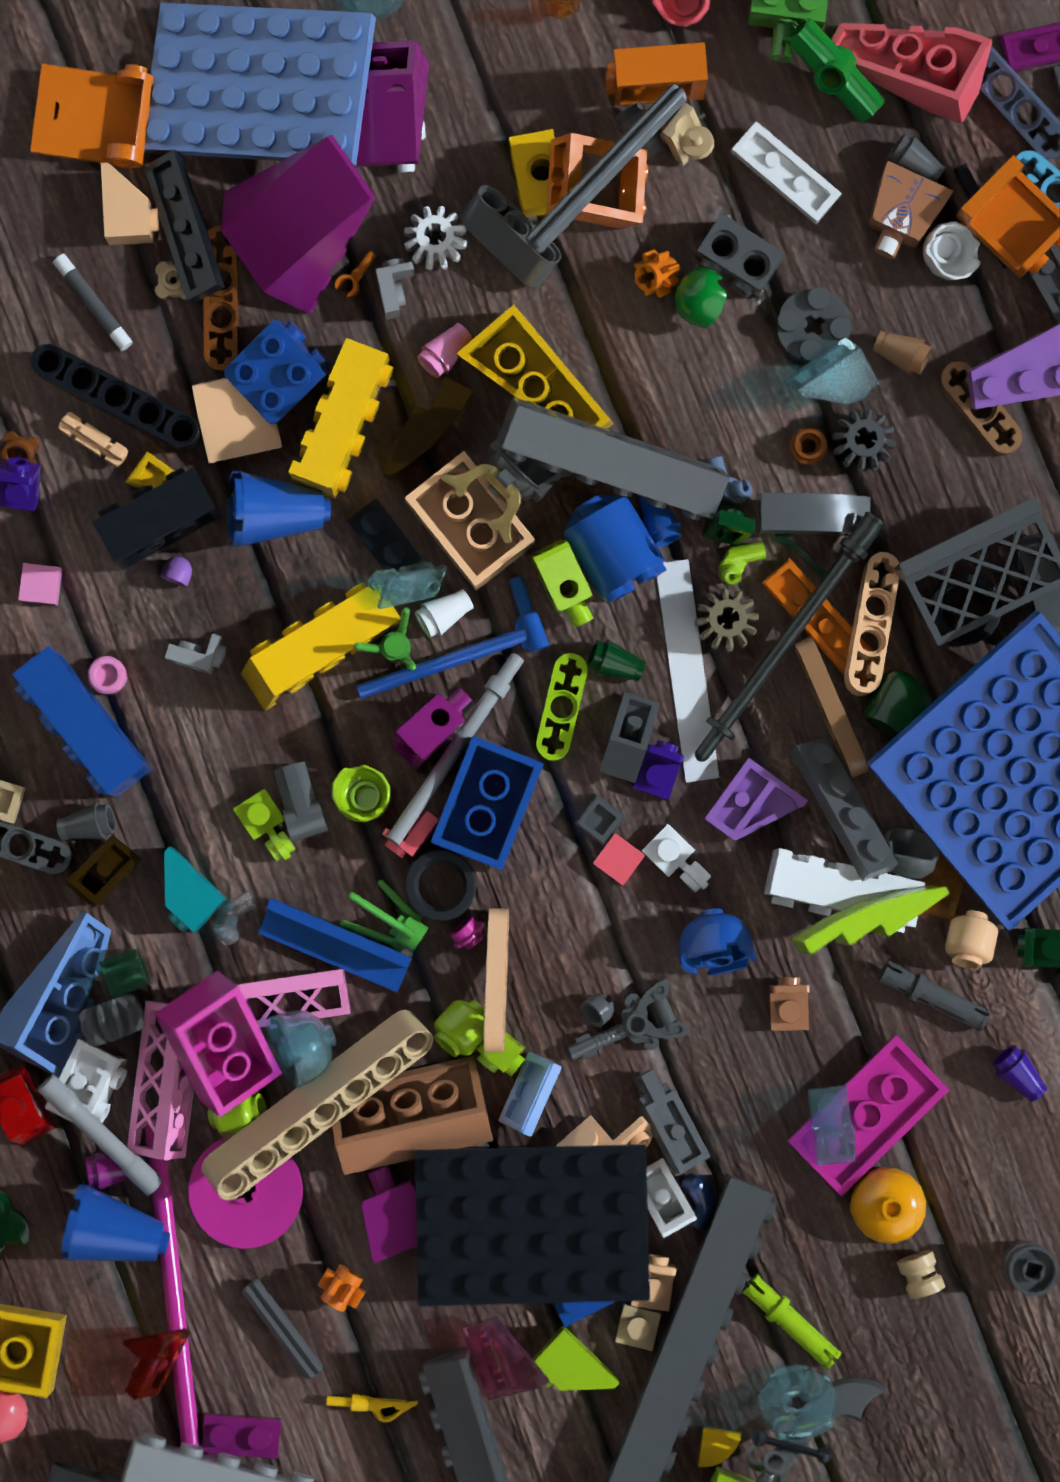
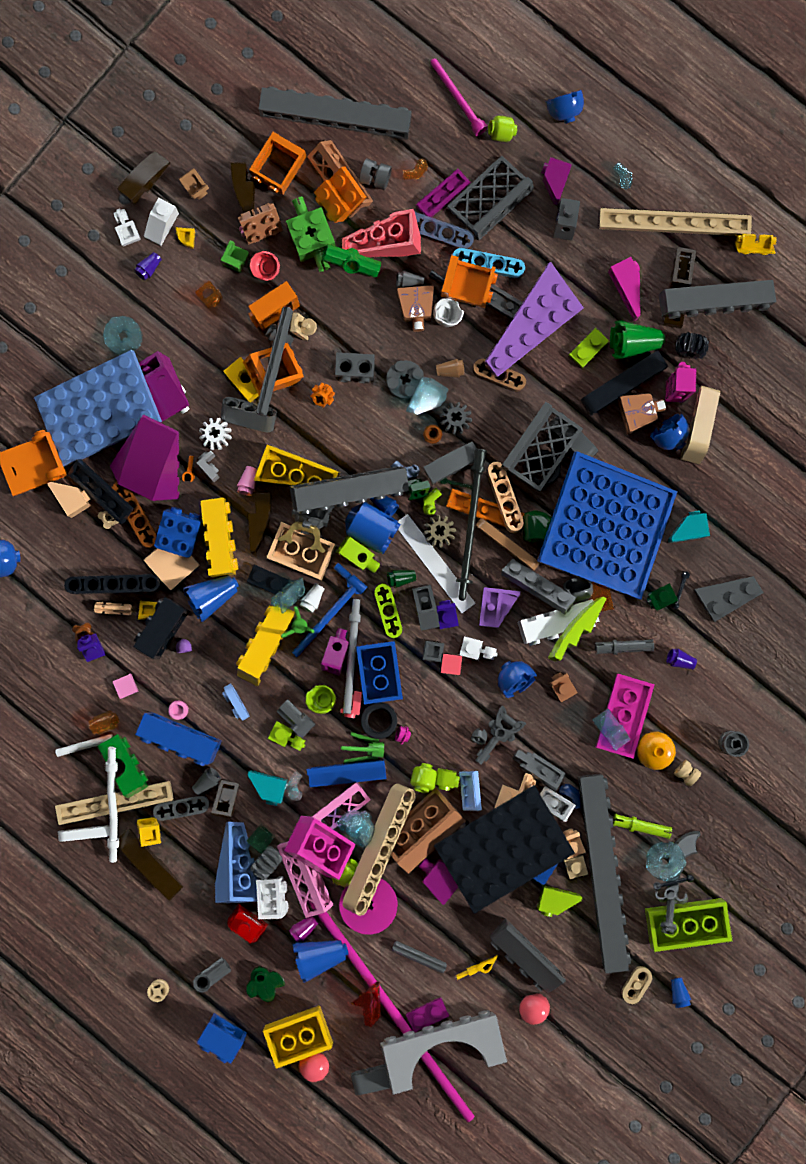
camera: 25 degrees left, 0 degrees up
(69, 1105) = (269, 912): light grey piece -> none
(92, 302) = (78, 547): dark grey bar -> none
(190, 655) = (210, 681): light grey bracket -> none
(212, 700) = (239, 709): none -> light blue plate
(341, 1288) = (435, 924): orange gear -> none
(496, 980) = (427, 749): light nougat beam -> none
(501, 1360) = (524, 916): clear pink wing -> none
(700, 297) = (348, 395): green hair -> none
(717, 1445) = (640, 899): yellow tile -> none
(786, 172) = (355, 318): white plate -> none
(971, 940) = (627, 612): light nougat head -> none

